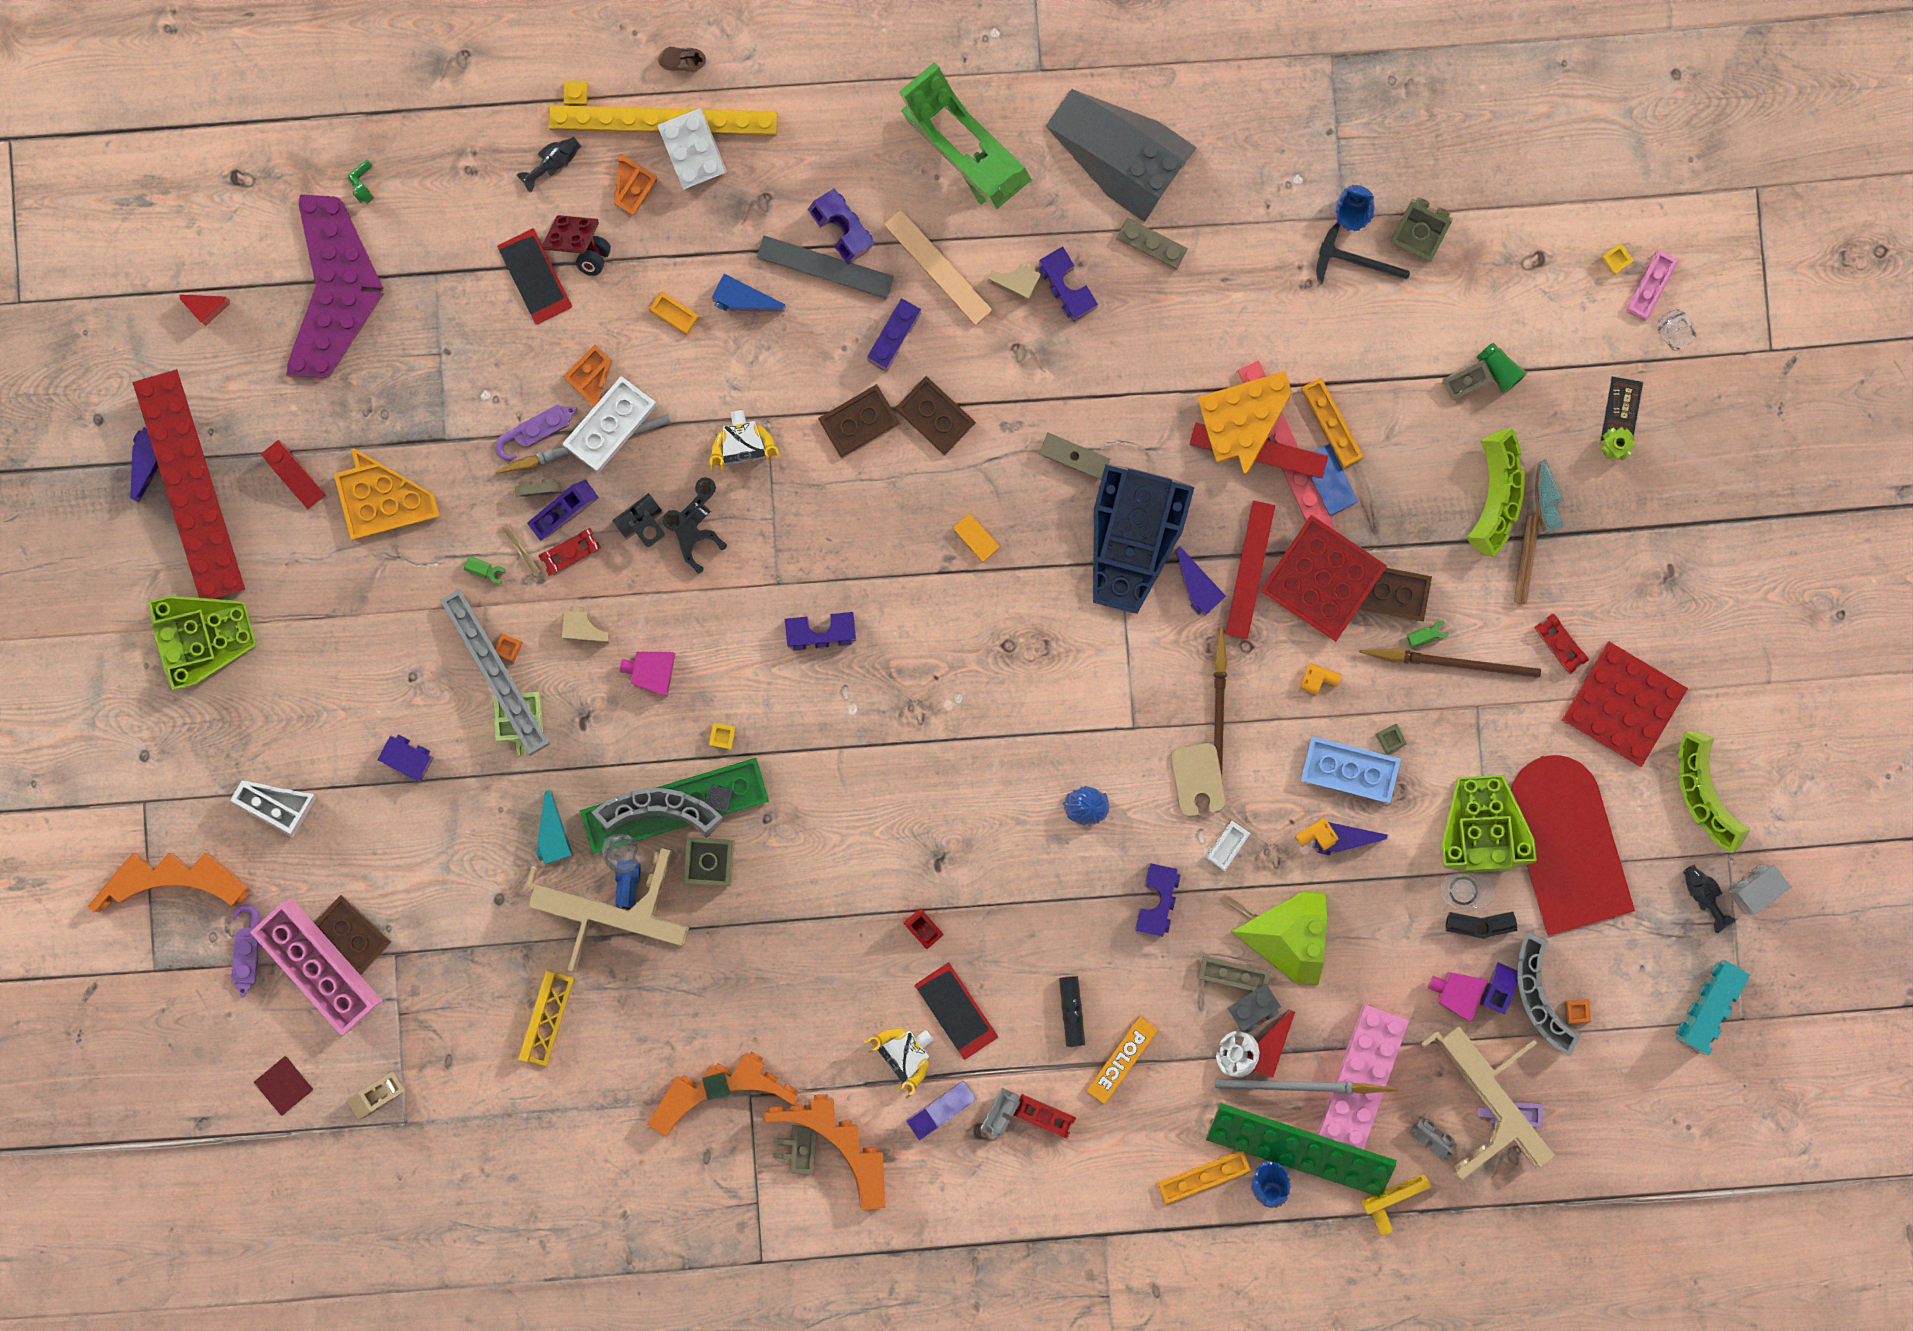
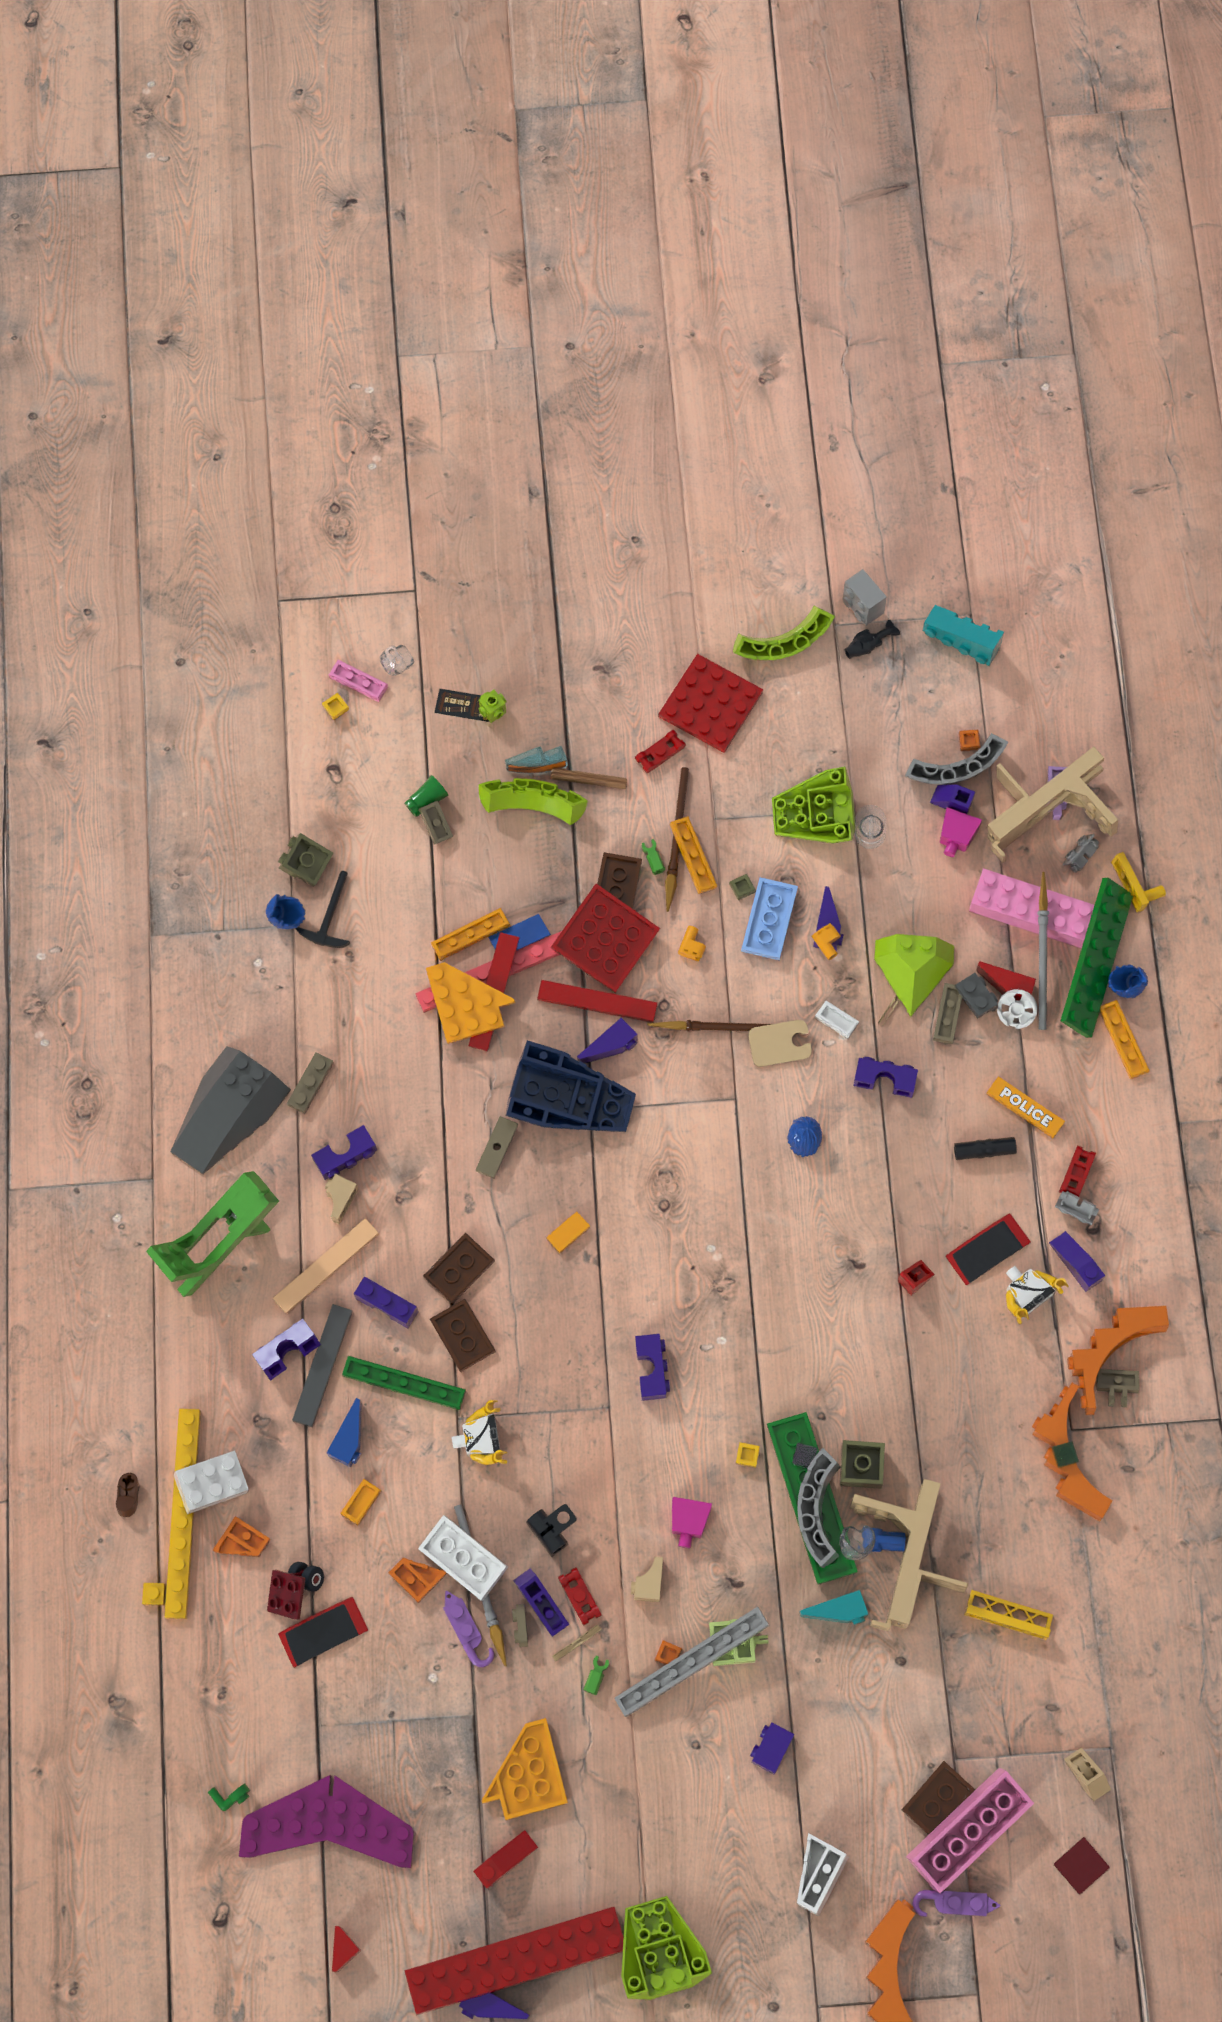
camera: 85 degrees left, 15 degrees down
(554, 157) = (213, 1612): black animal -> none
(689, 519) = (553, 1486): black piece -> none
(805, 357) = (404, 1383): none -> green tile
(1429, 681) = (693, 855): none -> light orange tile
(1495, 924) = (899, 804): black piece -> none
(1577, 861) = (848, 736): red piece -> none

